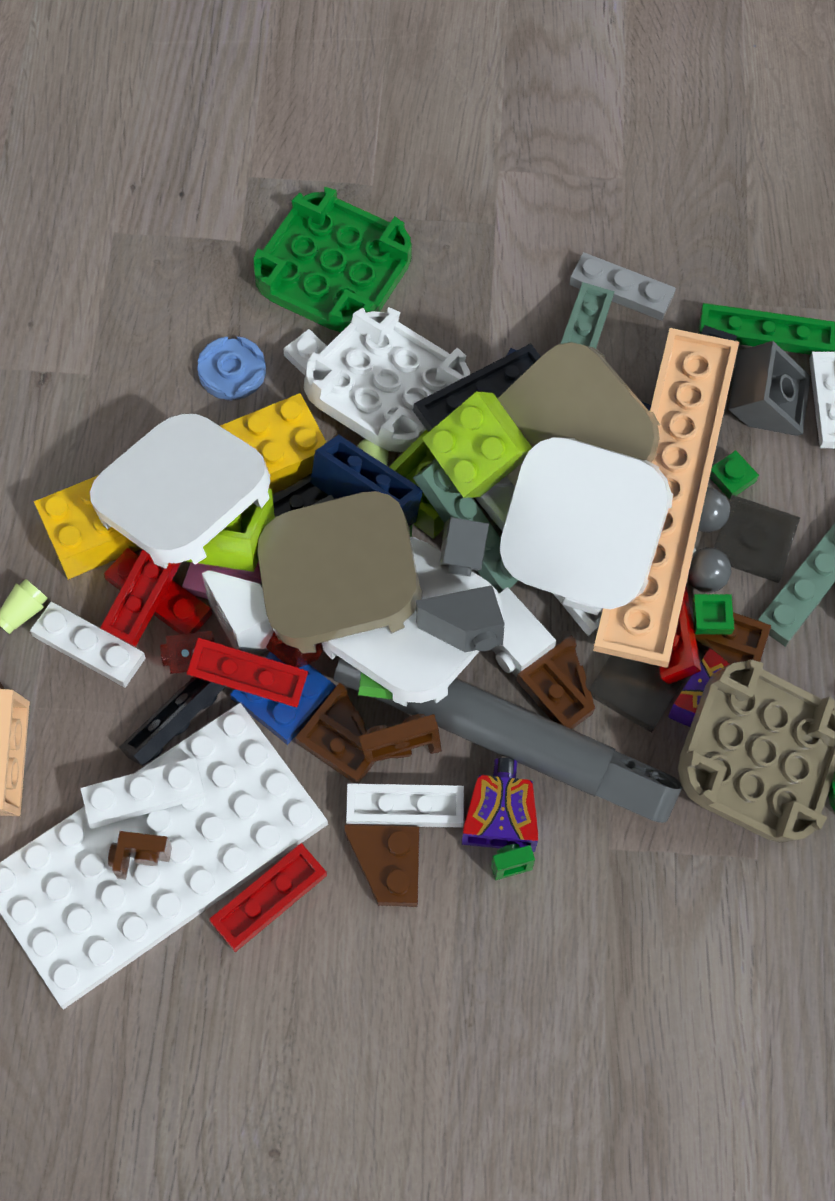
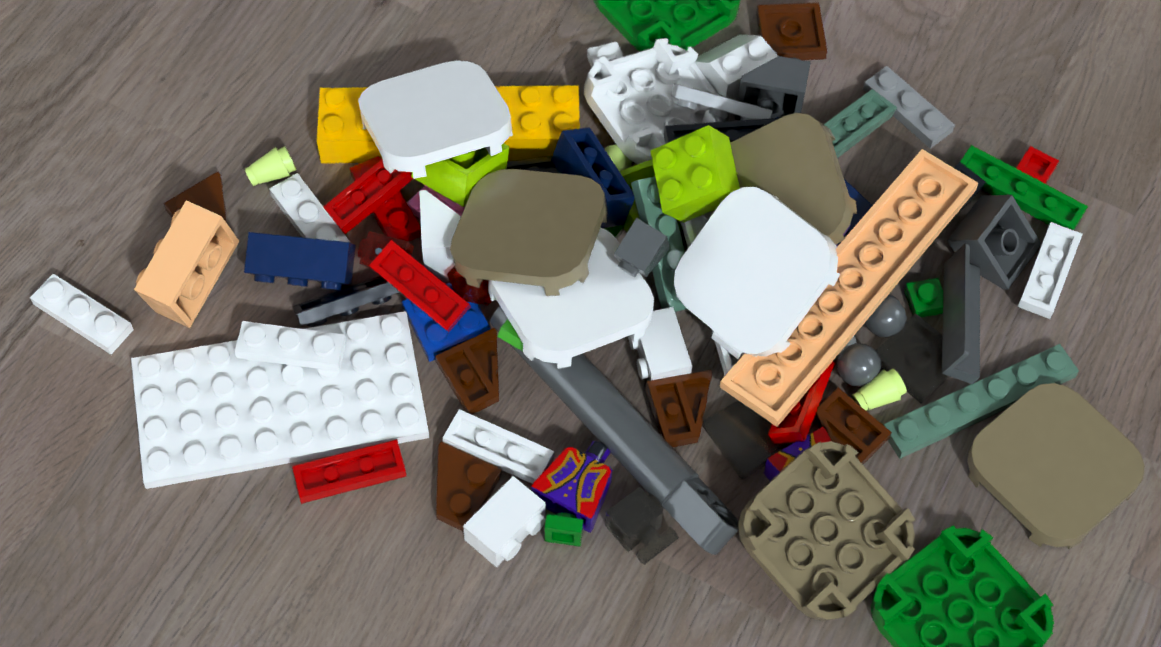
camera: 25 degrees right, 5 degrees down
(104, 696) = (299, 260): none -> dark blue brick
(144, 848) = (263, 384): reddish brown bracket -> none
(231, 368) = (535, 57): medium blue tile -> none
(397, 741) = (518, 390): reddish brown wing -> none
(442, 307) = (731, 60): none -> white slope
(451, 358) = (718, 105): none -> light grey plate
(451, 880) = (505, 522): none -> white brick
(463, 619) = (608, 305): dark grey slope -> none
(475, 252) = (793, 30): none -> reddish brown plate
(497, 322) = (776, 86): none -> dark grey slope
(577, 821) = (637, 521): none -> clear smoke brick
(713, 614) = (840, 400): green plate -> none
(743, 583) = (881, 390): none -> yellowish green cone
(772, 298) = (1038, 164): none -> red plate
(778, 481) = (961, 317): none -> dark grey panel

